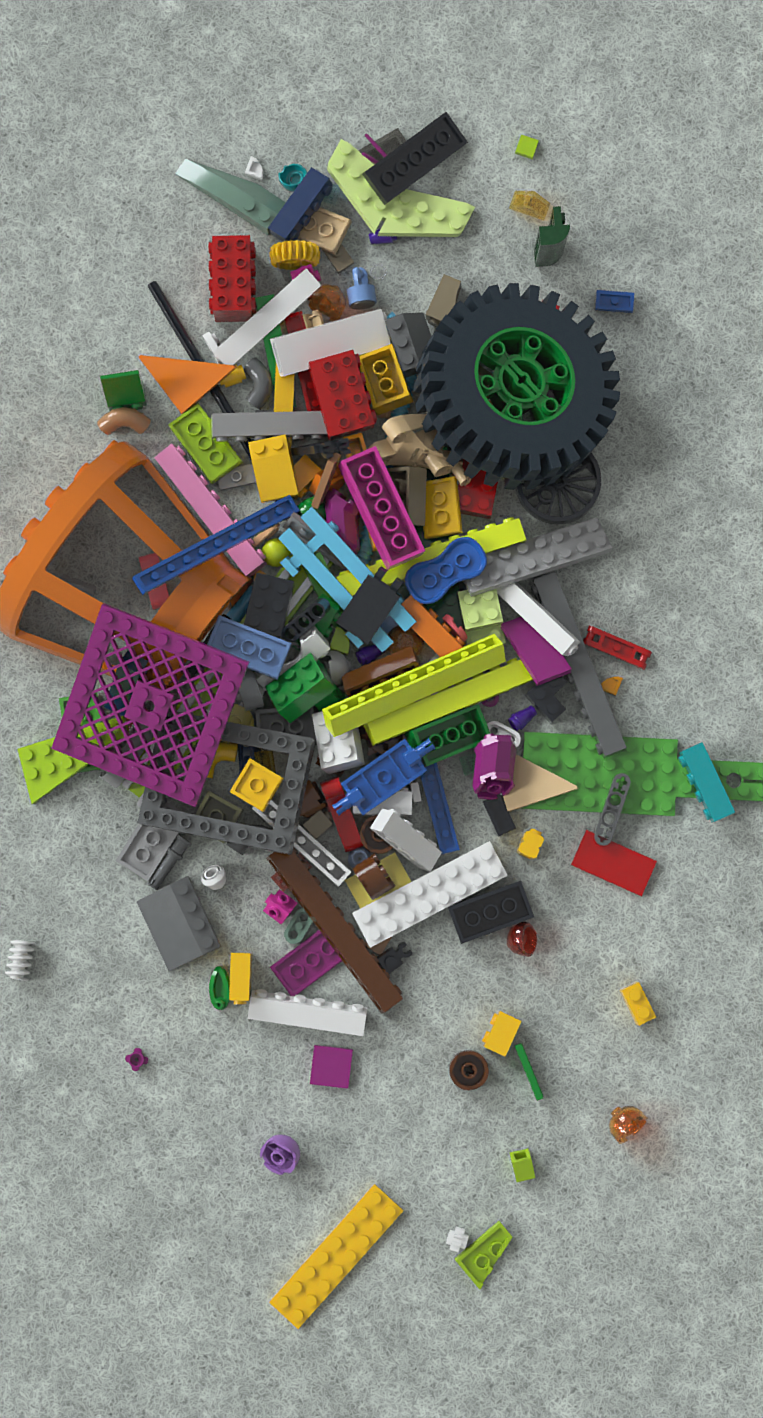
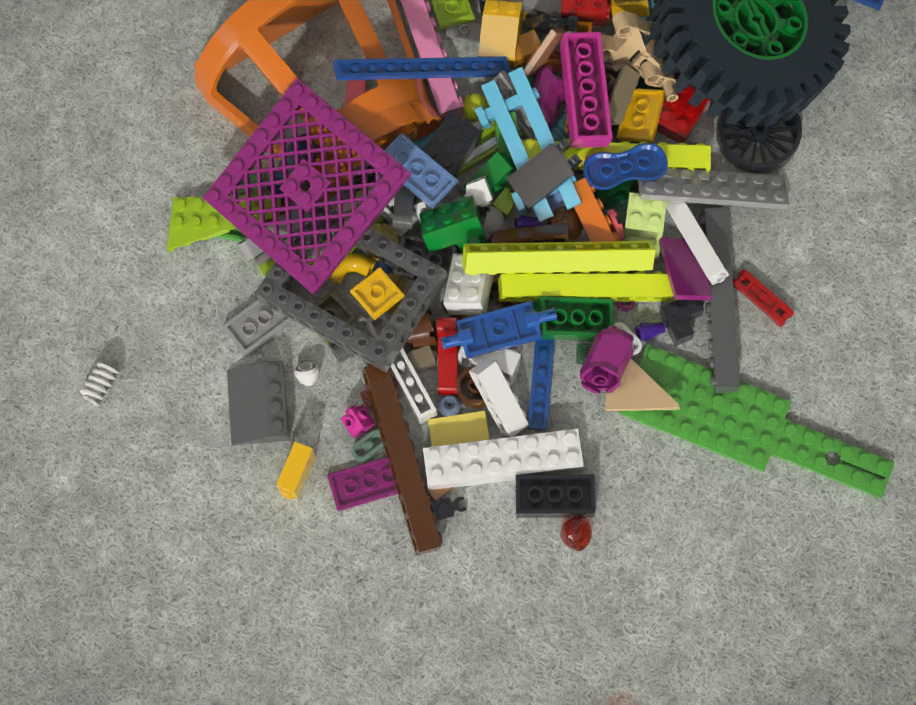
camera: 25 degrees right, 10 degrees down
(136, 1054) = (164, 511): magenta plate -> none
(174, 853) = (278, 340): dark grey pin -> none
(219, 988) = (270, 477): green arm -> none
(265, 534) = (473, 86): light nougat tile -> none
(280, 1154) = (269, 651): medium lavender cylinder -> none
(307, 1012) = (346, 528): white brick -> none
(311, 614) = (487, 163): black beam -> none
(331, 1066) = (349, 588): magenta tile -> none
(373, 877) = (455, 422): reddish brown brick -> none
(415, 792) = (524, 362): white tile -> none
(472, 1080) = (479, 626): reddish brown brick -> none
(499, 815) = (595, 411): black plate -> none
(501, 1033) = (523, 615): yellow brick -> none
(529, 1071) = (537, 661): green tile -> none
(530, 844) = (615, 445): yellow brick -> none
(609, 808) = (704, 440): dark grey beam -> none
(611, 685) = (745, 330): light orange tile -> none
(614, 863) = (690, 494): red tile -> none
(637, 1003) = (666, 634): yellow brick -> none
(707, 782) = (806, 448): teal brick -> none

